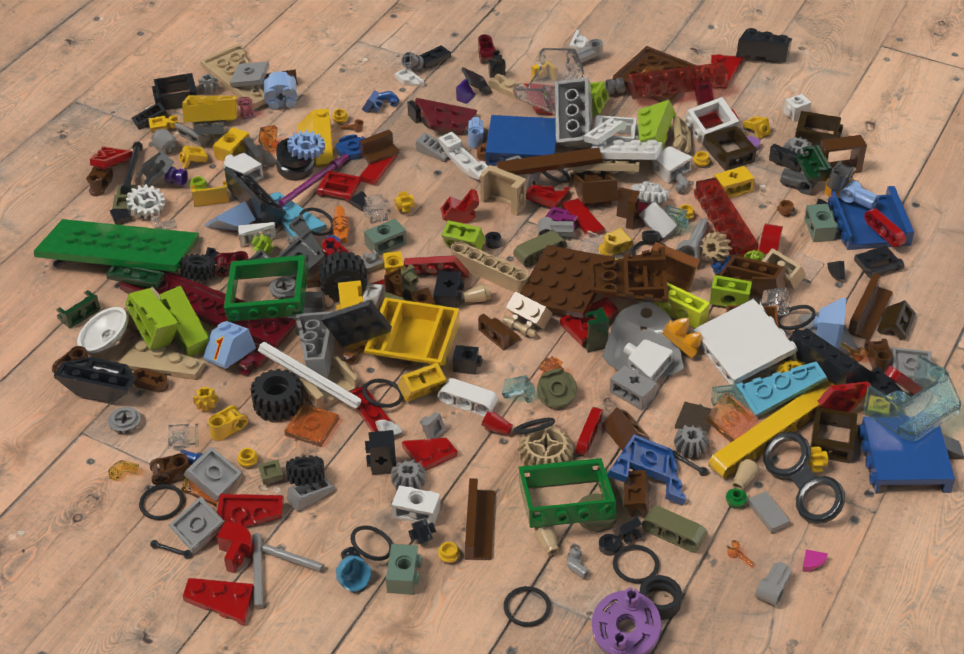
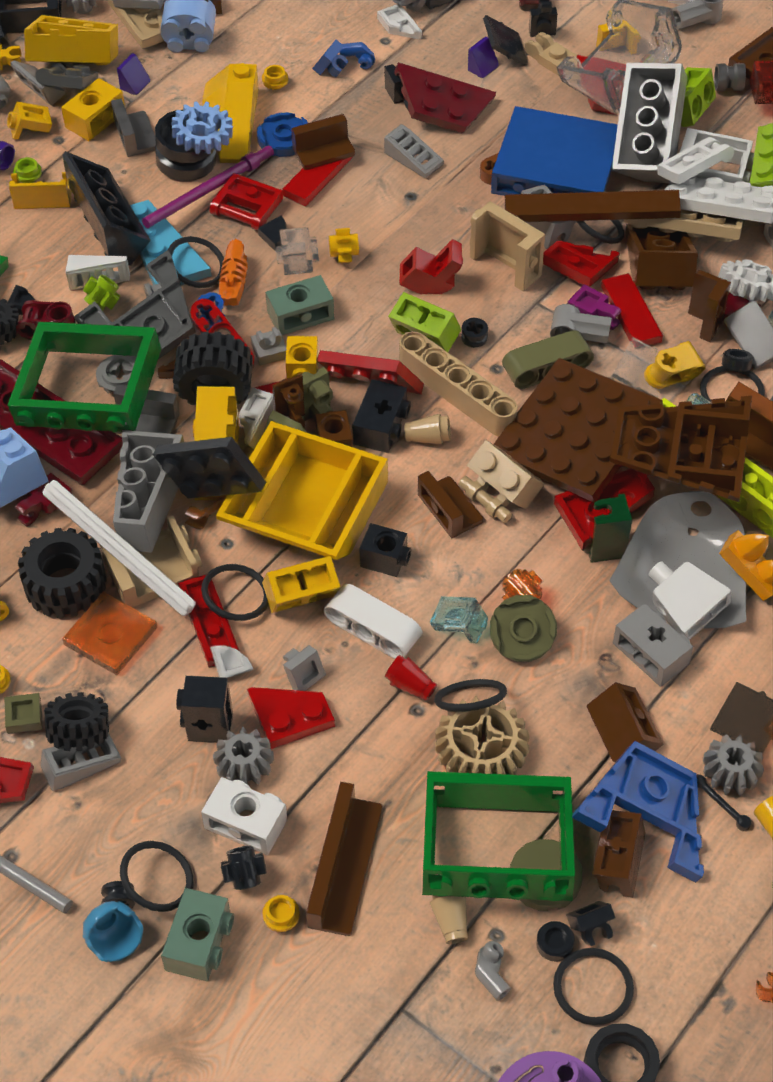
camera: 10 degrees right, 10 degrees up
(232, 218) = (66, 239): light blue slope -> none
(244, 164) = (103, 149): white torso -> none
(245, 107) = (128, 39): clear pink bush -> none
(251, 124) = (132, 75): none -> dark purple slope
(268, 137) = (153, 102): clear orange panel -> none
(357, 126) = (299, 97): dark orange hand -> none
(460, 157) = (453, 174): white slope -> none
(475, 132) = (485, 133): light blue piece -> none
(527, 588) = (393, 1074): black tyre -> none
(589, 431) = (562, 717): red beam -> none
(674, 528) = (672, 931): olive beam -> none

